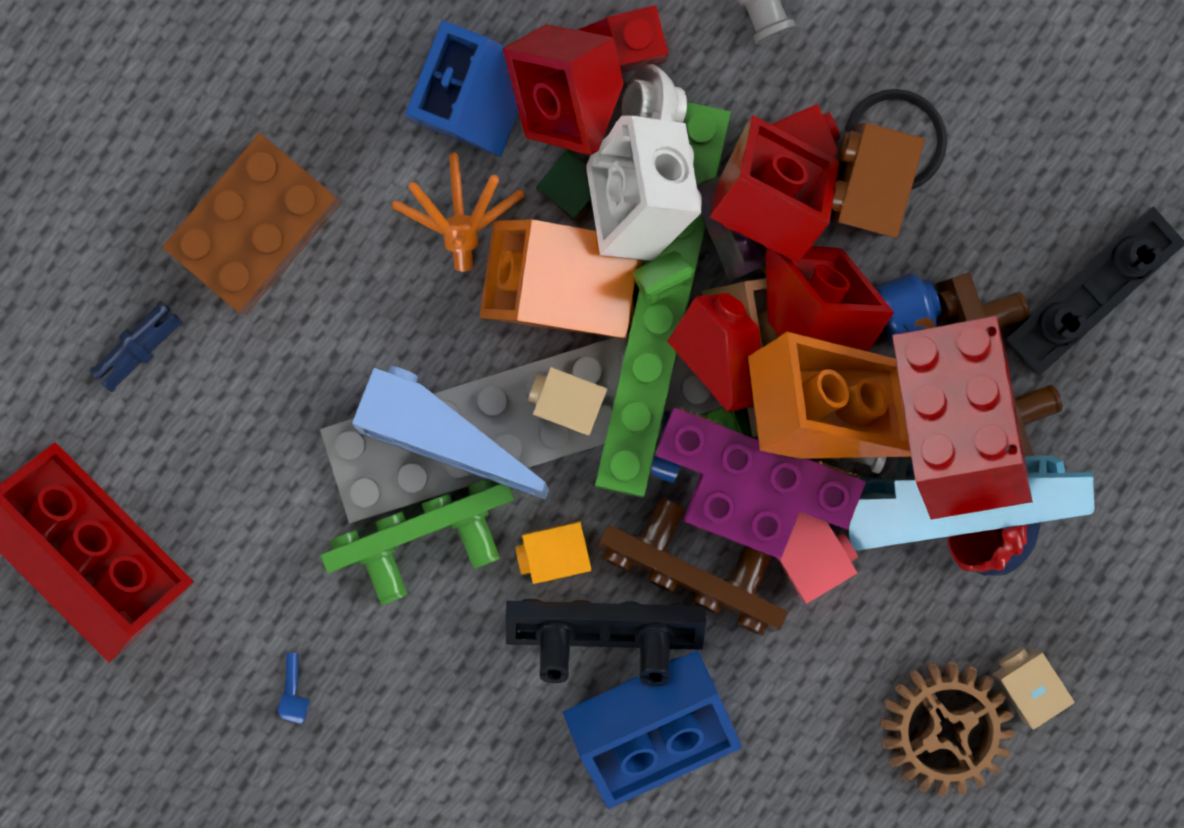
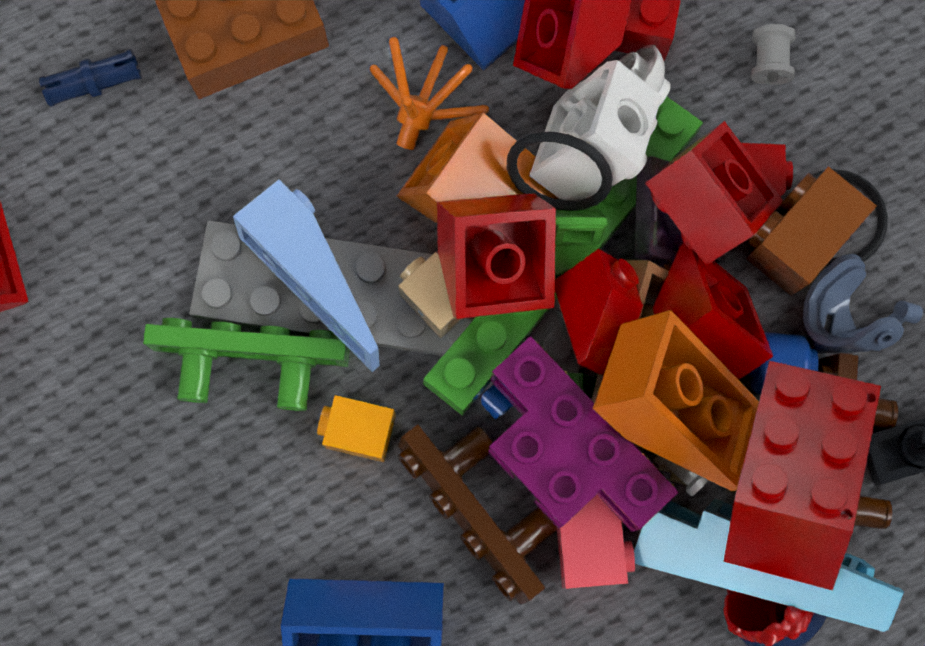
camera: 30 degrees right, 10 degrees down
(292, 707) = (50, 452): blue hand -> none
(567, 184) = (528, 114): dark green tile -> none
(607, 344) = (497, 254): none -> red slope
(621, 625) = (369, 518): black plate -> none
(624, 222) = (571, 141): none -> black tyre
(924, 220) = (831, 296): none -> sand blue helmet

